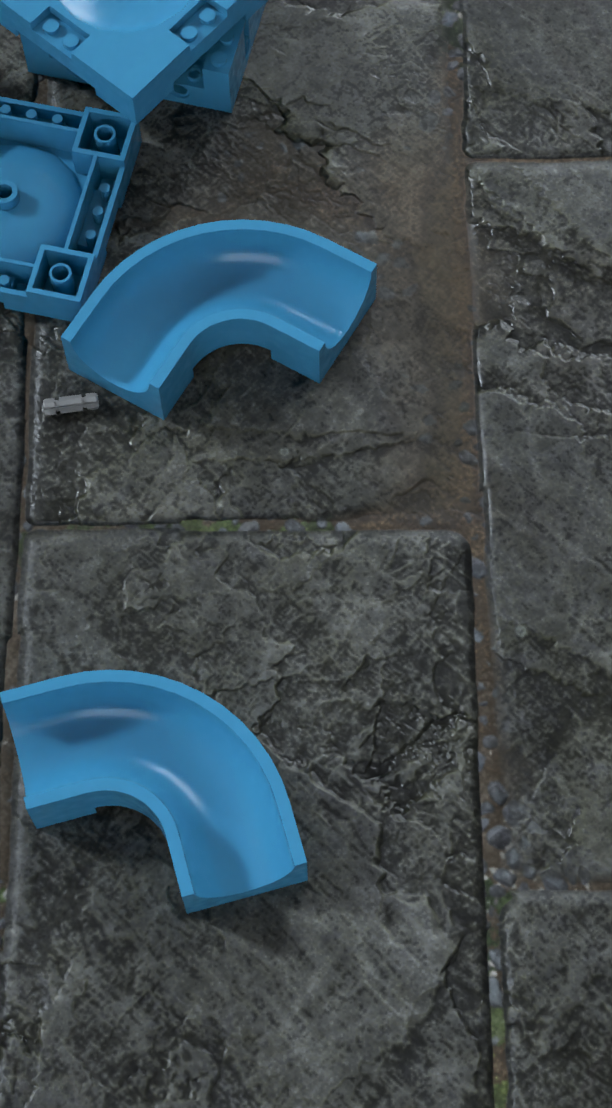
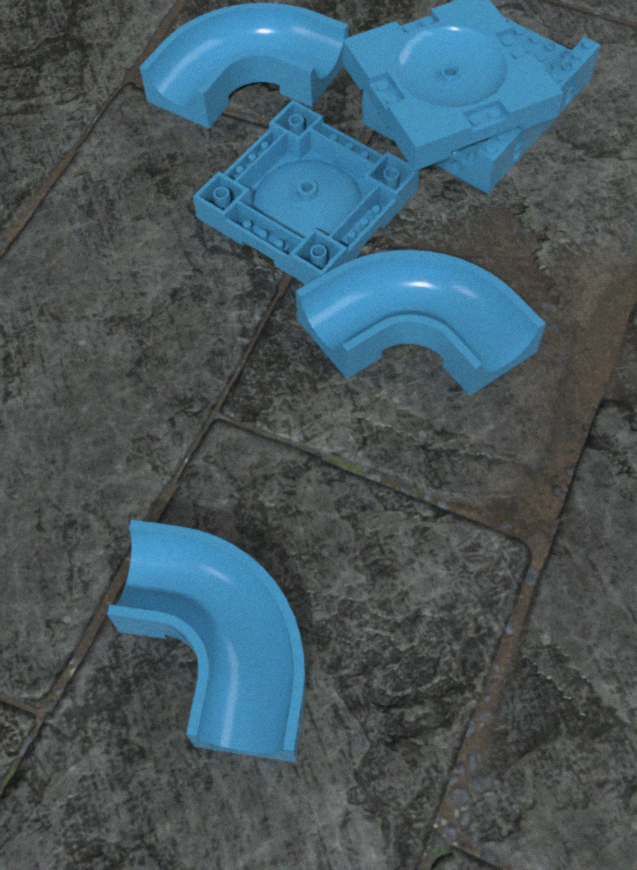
camera: 25 degrees right, 5 degrees down
(70, 404) = (287, 343): light grey axle -> none

